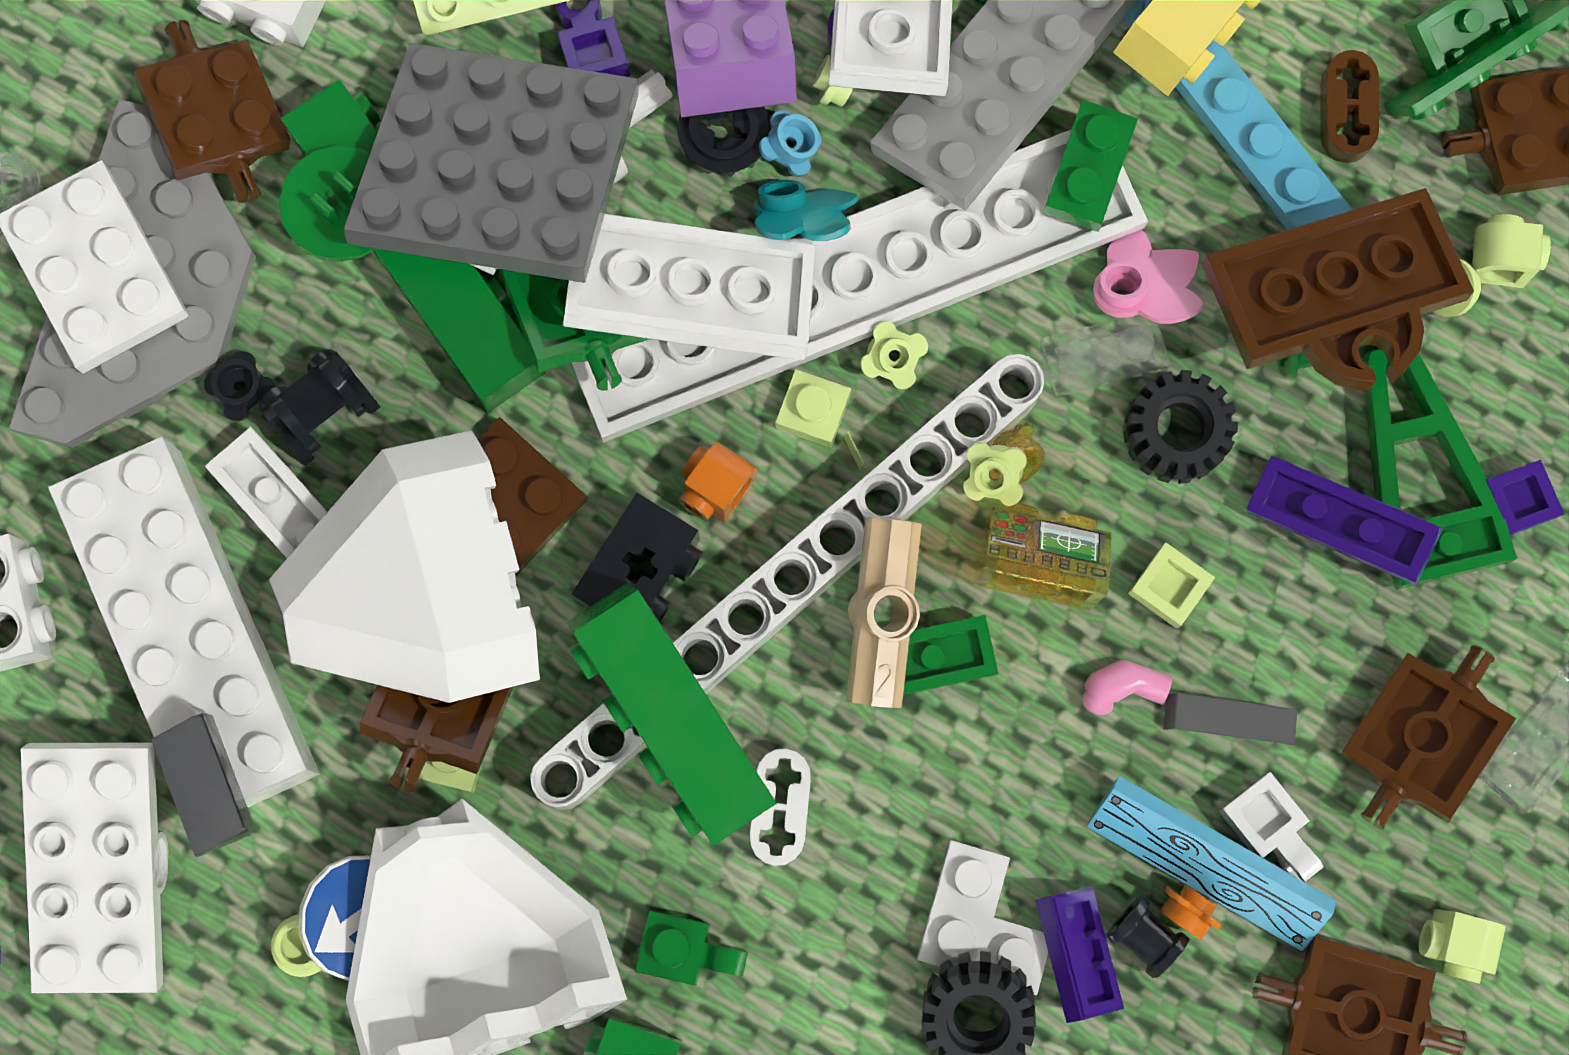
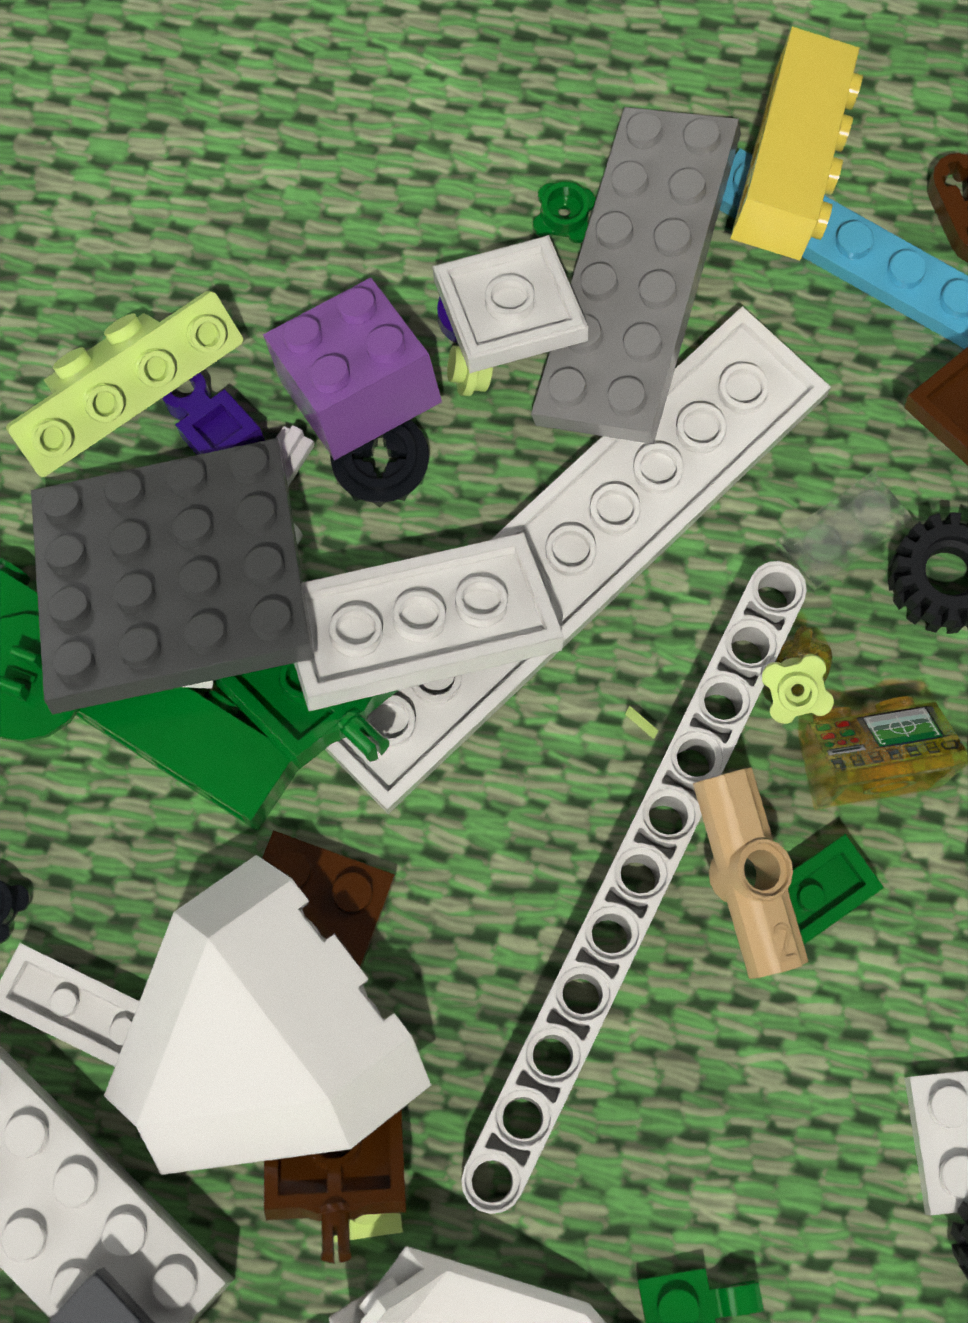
camera: 20 degrees left, 5 degrees down
(313, 400) = (75, 890): black piece -> none
(642, 532) = (471, 887): black brick -> none
(671, 714) = (585, 1064): green wedge -> none
(715, 482) = (519, 808): orange plate -> none
(788, 211) = (481, 511): teal plate -> none
(795, 809) = (739, 1109): white beam -> none
(800, 132) = (460, 434): medium azure plate -> none
(813, 408) = (584, 696): yellowish green plate -> none
(877, 359) = (625, 608): yellowish green plate -> none
(1090, 165) = (754, 355): green plate -> none
(1154, 279) = (858, 441): bright pink plate -> none

